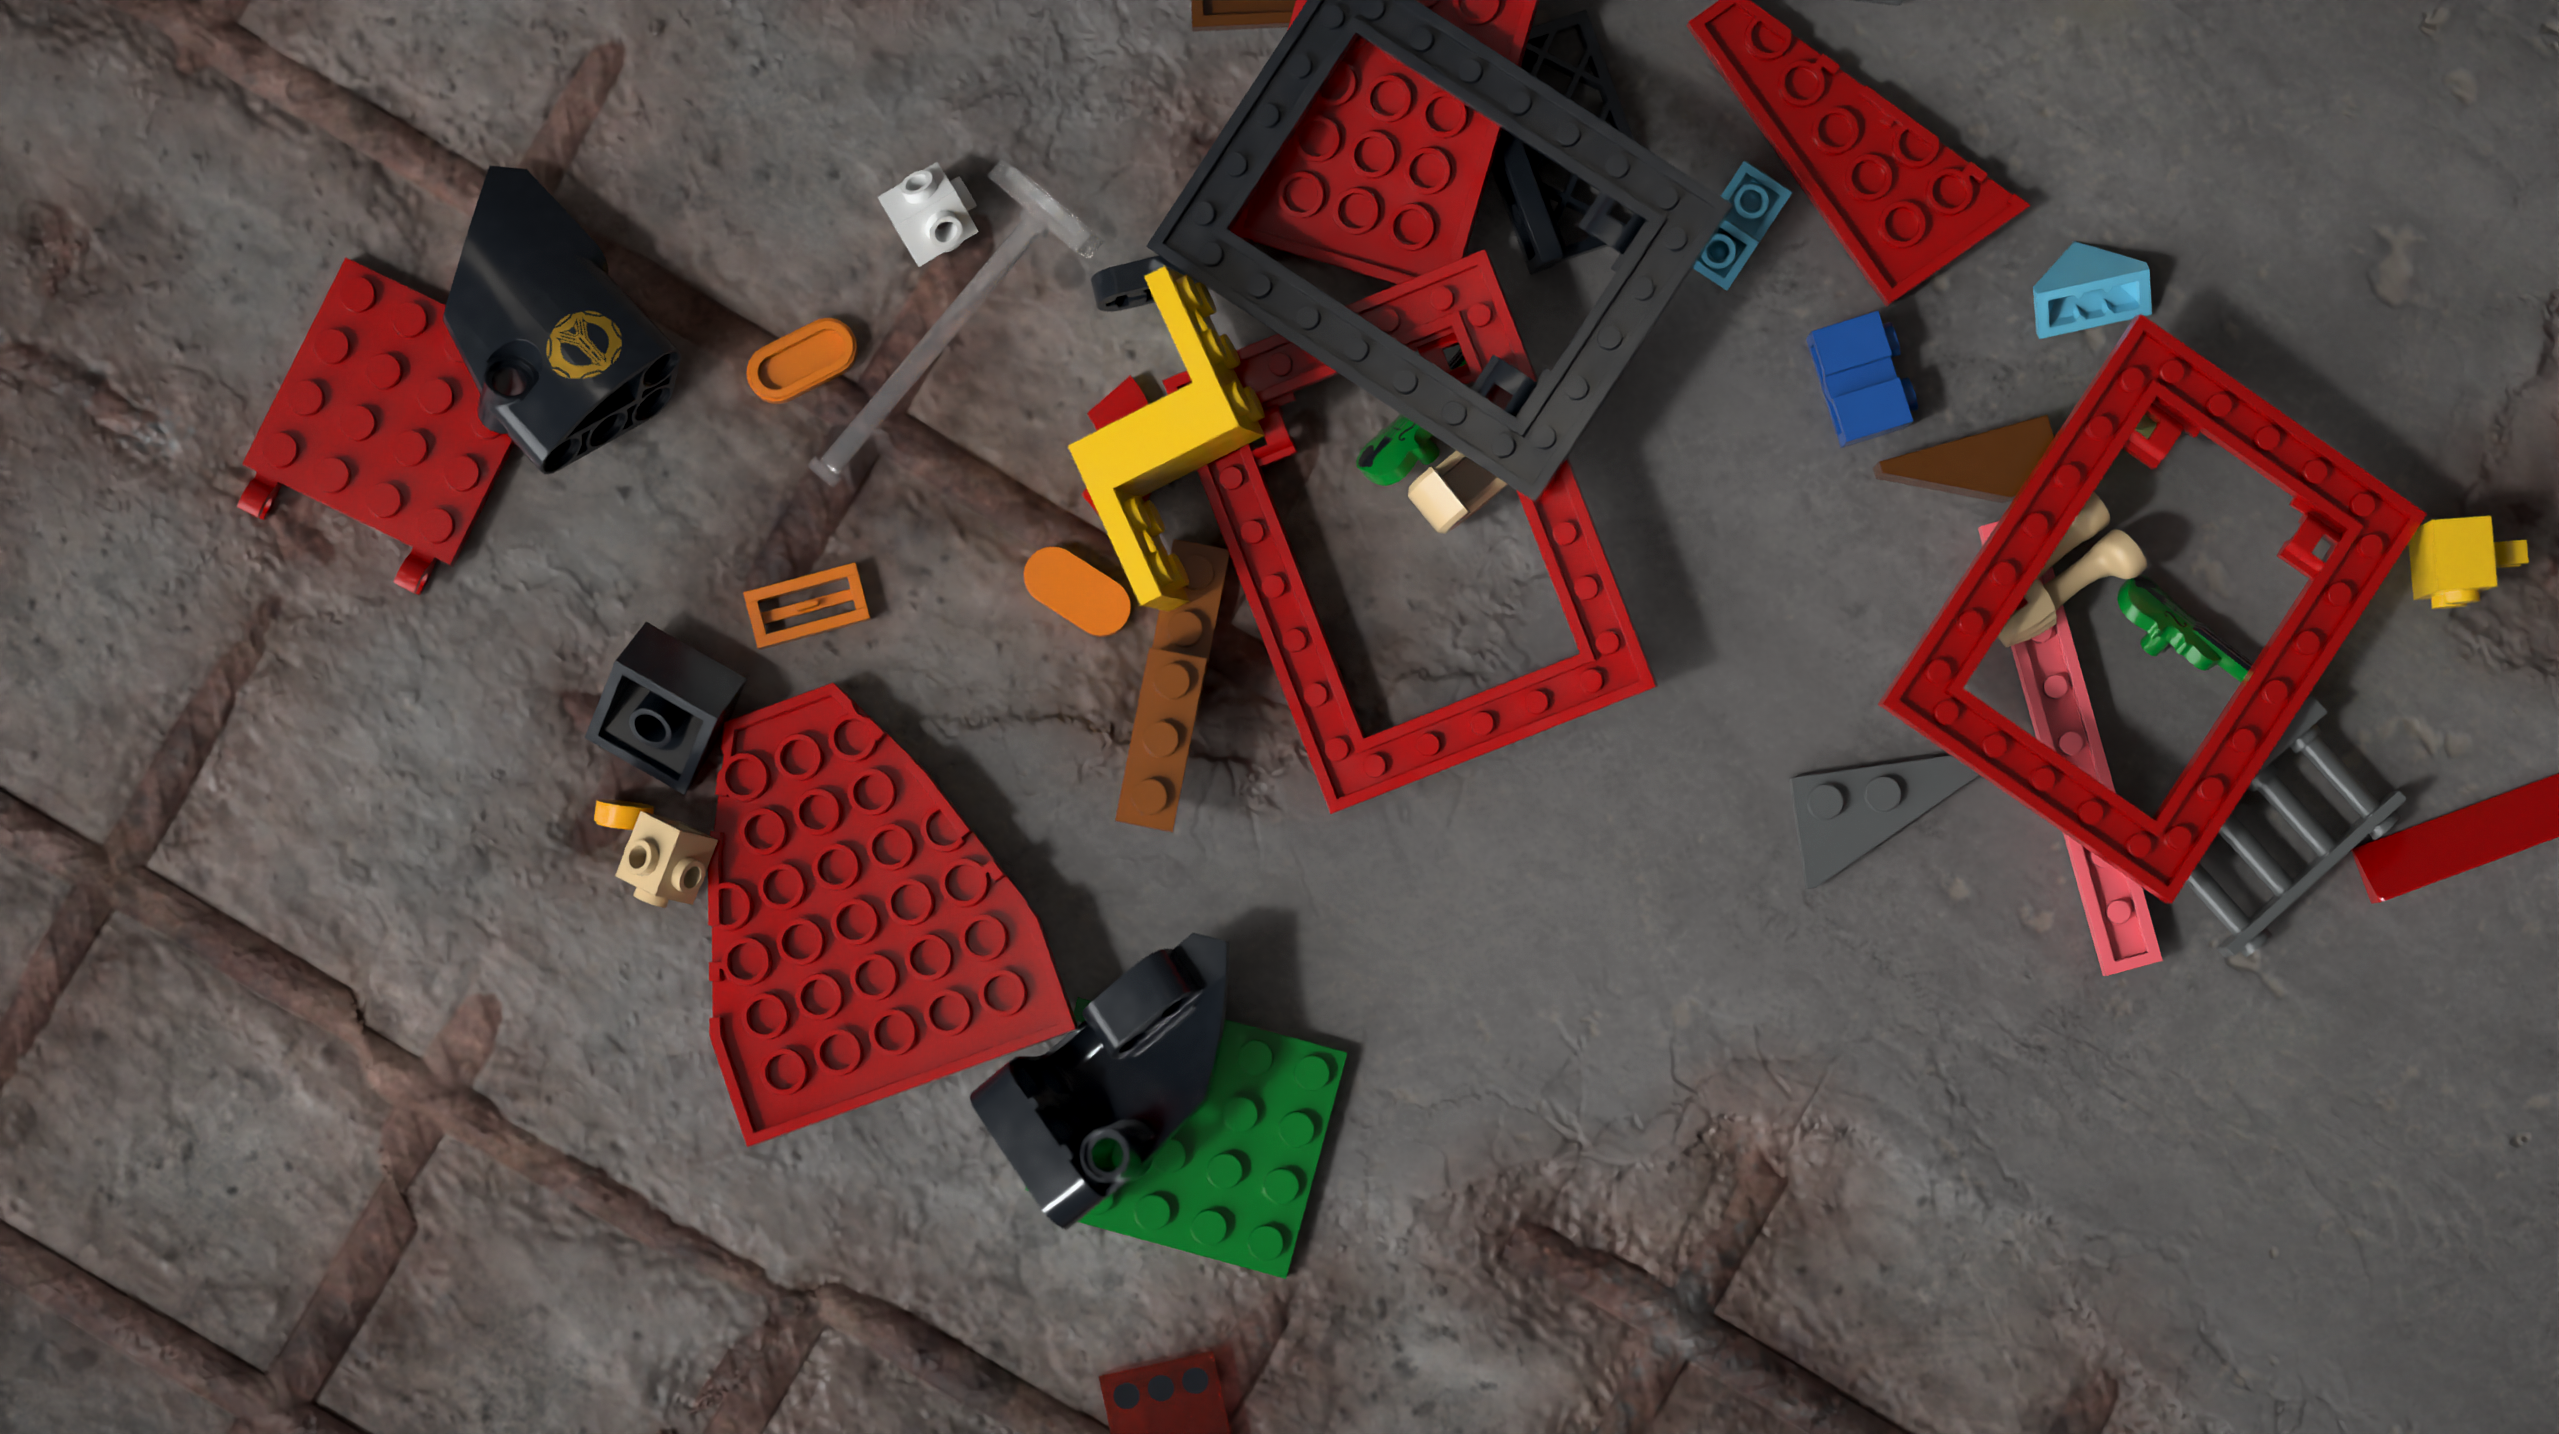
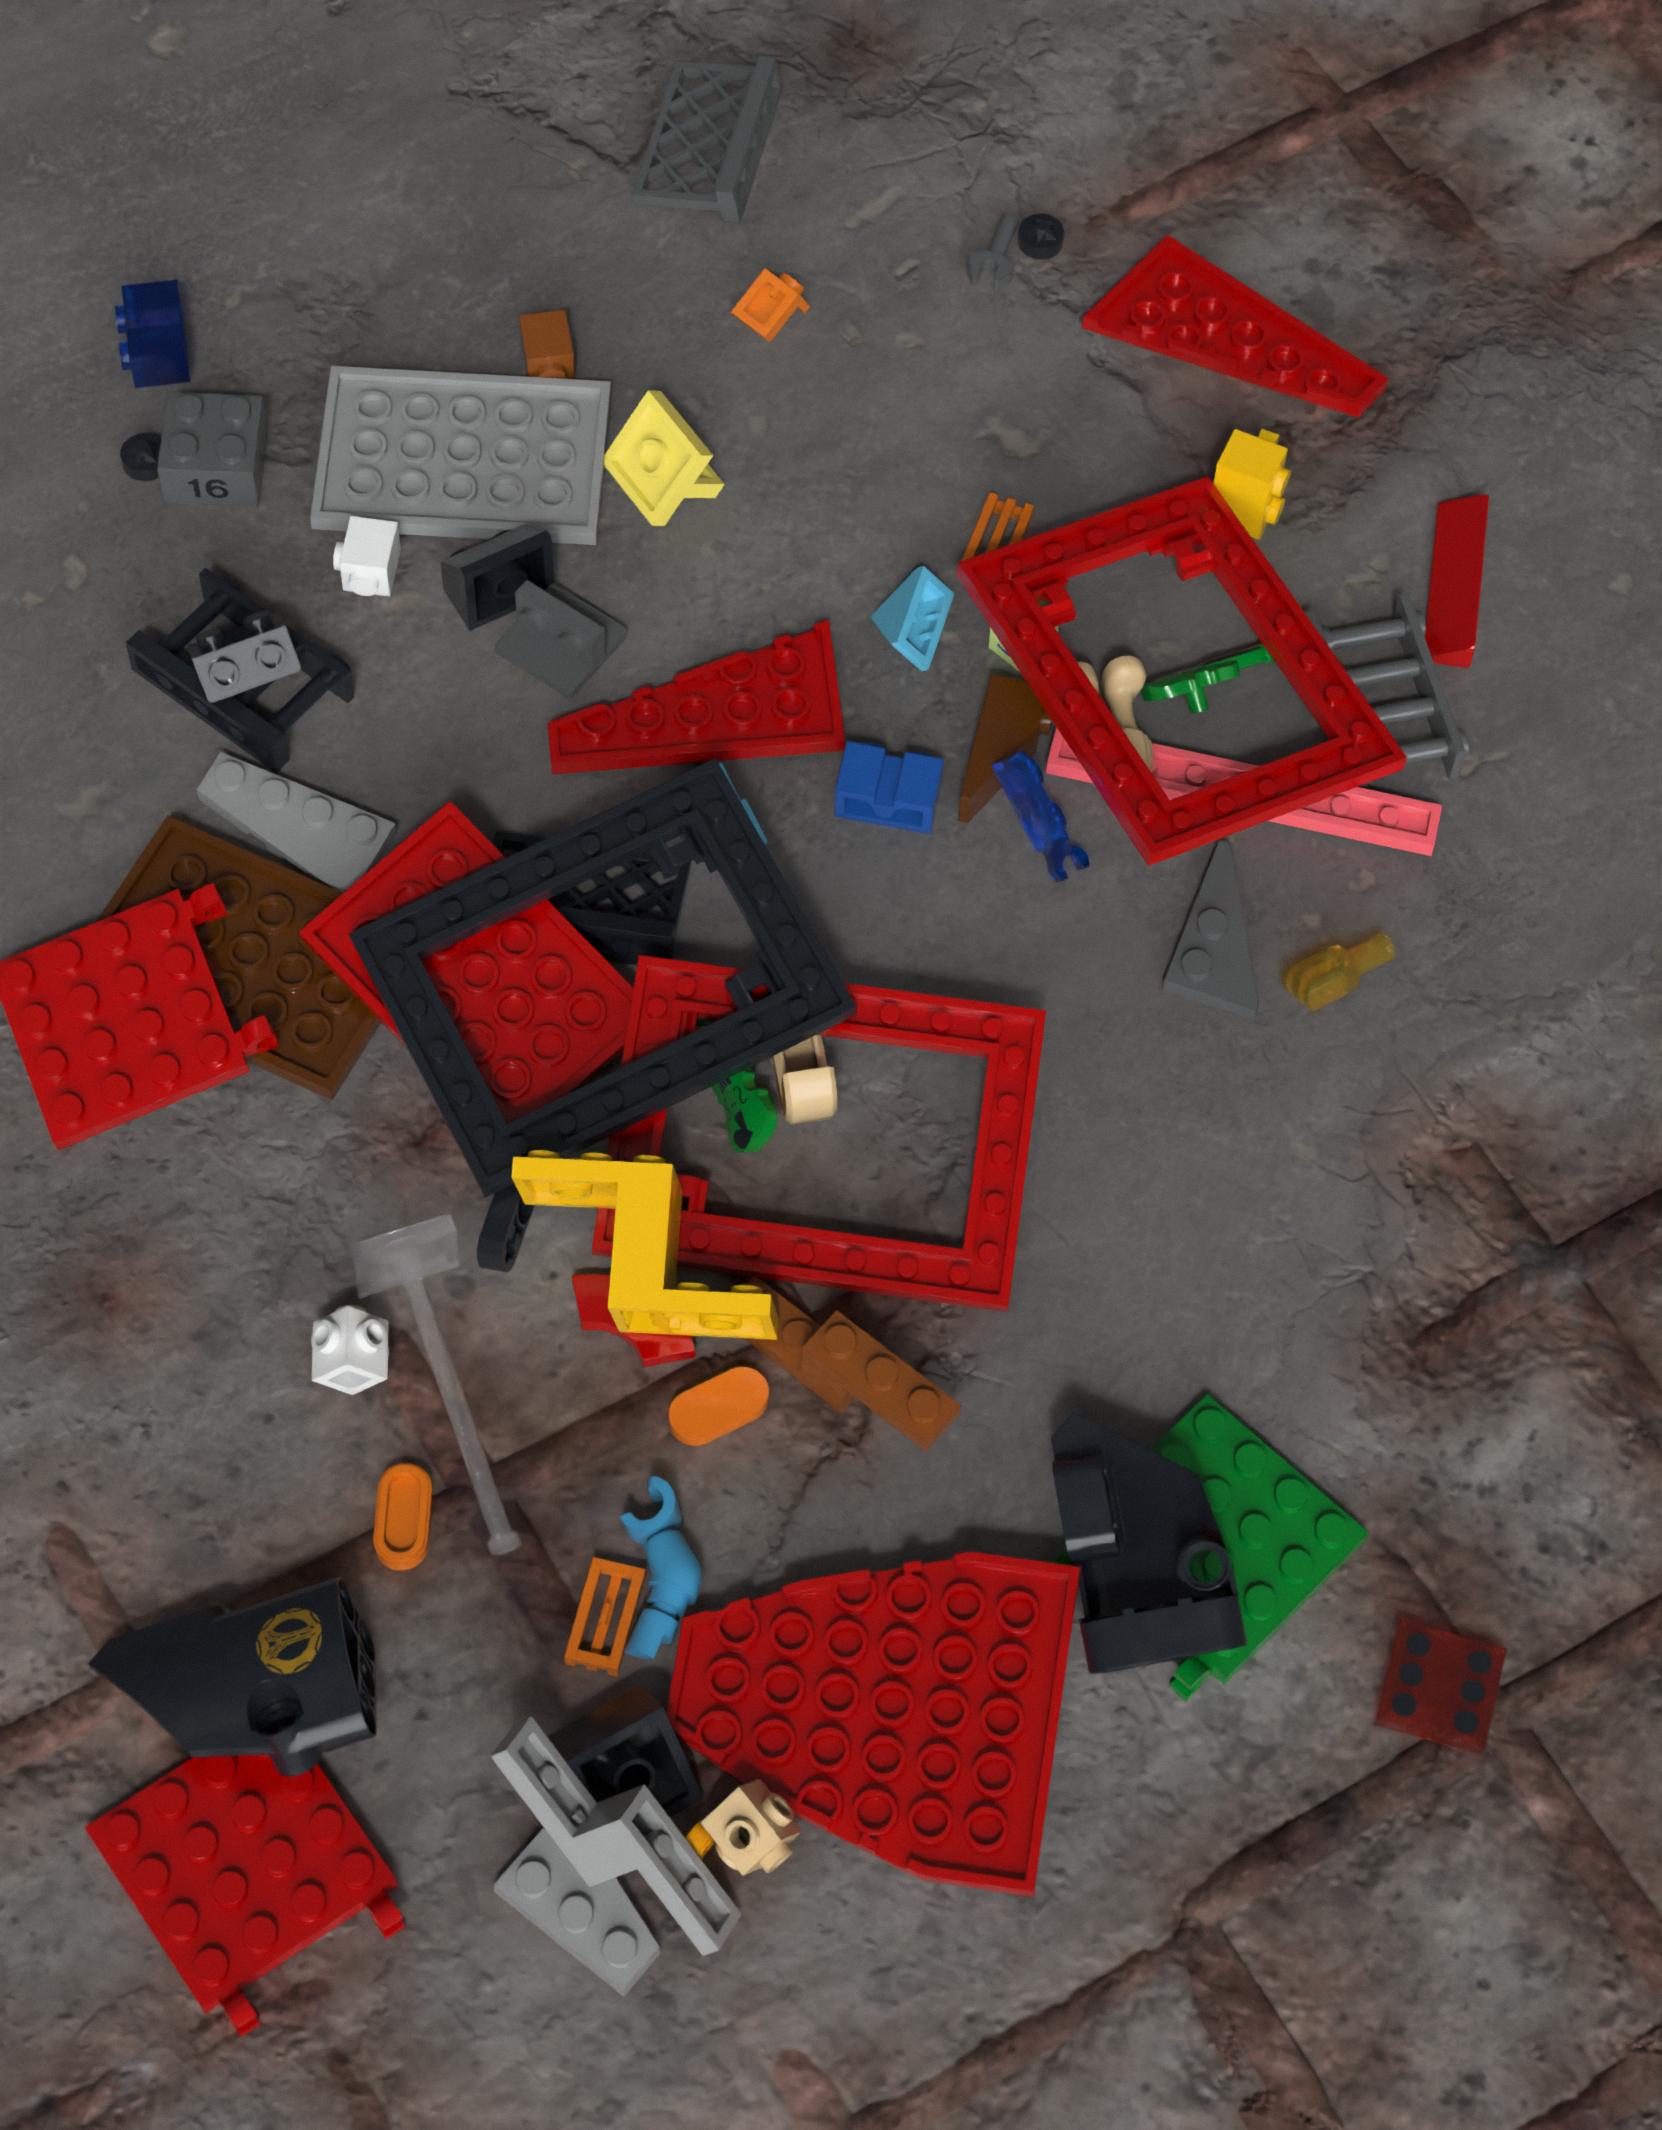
camera: 65 degrees left, 25 degrees down
(522, 738) = (589, 1922): none -> light grey wing
(578, 743) = (616, 1835): none -> light grey bracket
(881, 645) = (673, 1570): none -> dark azure piece
(1898, 946) = (1336, 971): none -> clear yellow arm
(1903, 558) = (1039, 816): none -> clear blue plate
(2293, 314) = (1006, 511): none -> orange tile

